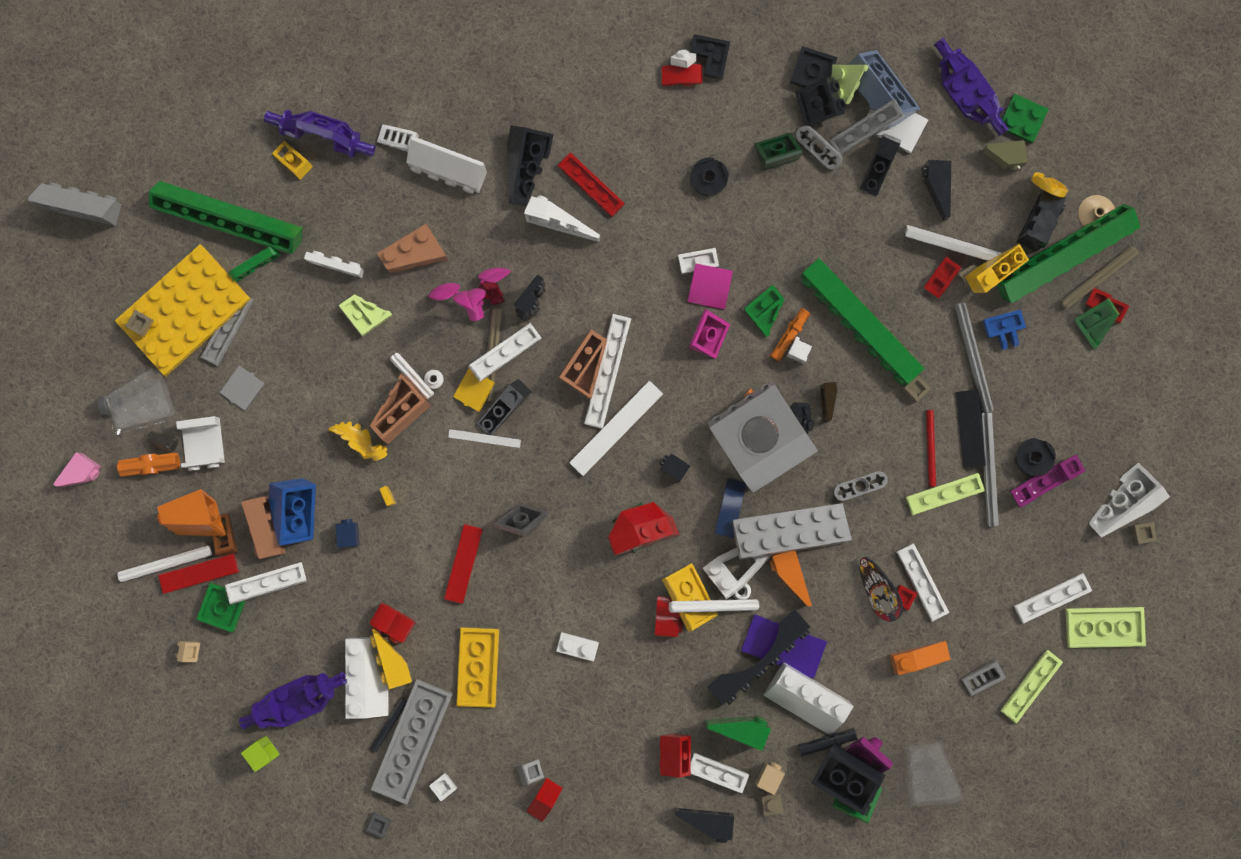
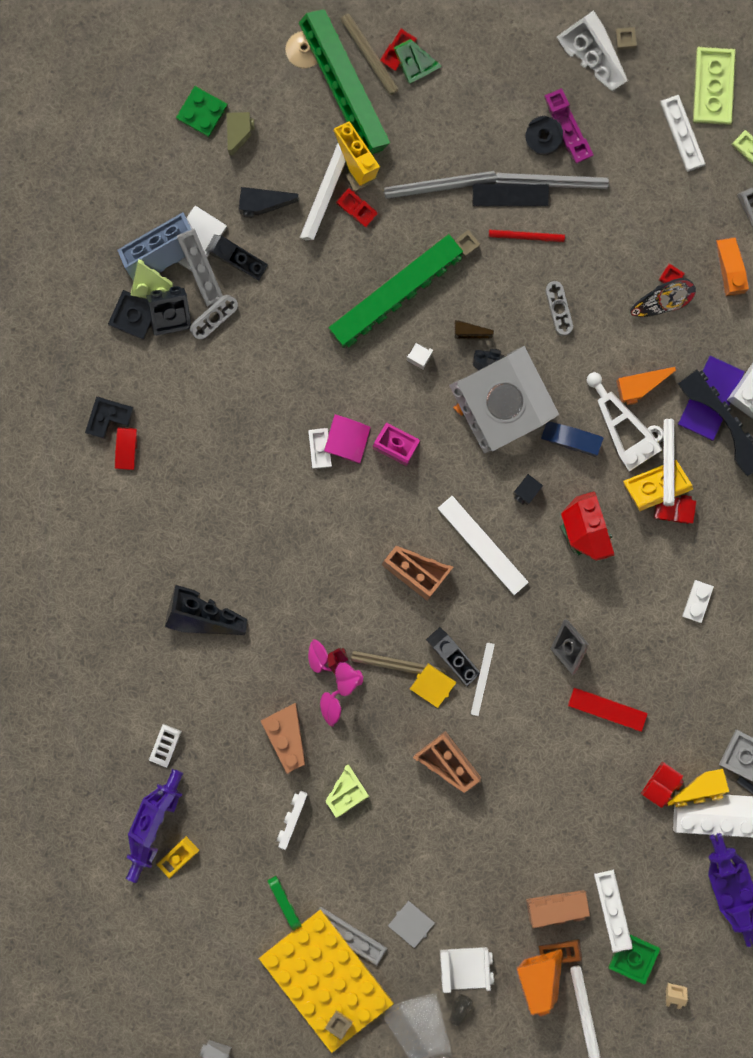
camera: 85 degrees left, 0 degrees up
(148, 464) = (483, 1025): orange piece -> none
(198, 573) = (598, 980): red tile -> none
(225, 217) = (234, 929): green brick -> none
(292, 510) = (542, 877): blue slope -> none
(347, 533) = (569, 824): dark blue brick -> none
(359, 440) = (476, 806): yellow plant -> none
(387, 496) = (534, 781): yellow tile -> none
(412, 376) = (413, 748): white axle -> none
(438, 383) = (412, 726): white plate -> none
(446, 165) = (200, 697): white slope -> none
(477, 667) = (711, 702): yellow tile -> none
(504, 352) = (397, 651): white tile -> none
(527, 303) = (351, 622): black plate -> none
(546, 214) = (260, 595): white wedge -> none
(591, 184) = (231, 550): red tile -> none
(607, 371) = (392, 537): white tile -> none
(683, 58) = (110, 445): white plate -> none
(707, 187) = (225, 424): black plate -> none
(765, 309) = (374, 386): green wing -> none
(778, 151) = (213, 358): dark green slope -> none
(791, 531) = (600, 380): light grey plate -> none
(794, 328) = (402, 363): orange pin -> none
(922, 582) = (658, 257): white tile -> none
(945, 494) = (573, 226): yellowish green tile -> none
(969, 88) = (167, 161): dark purple plate -> none
(1005, 324) = (409, 151): blue hinge -> none
(1041, 221) = (308, 104): black wedge -> none
(1049, 184) = (274, 93): yellow tile -> none

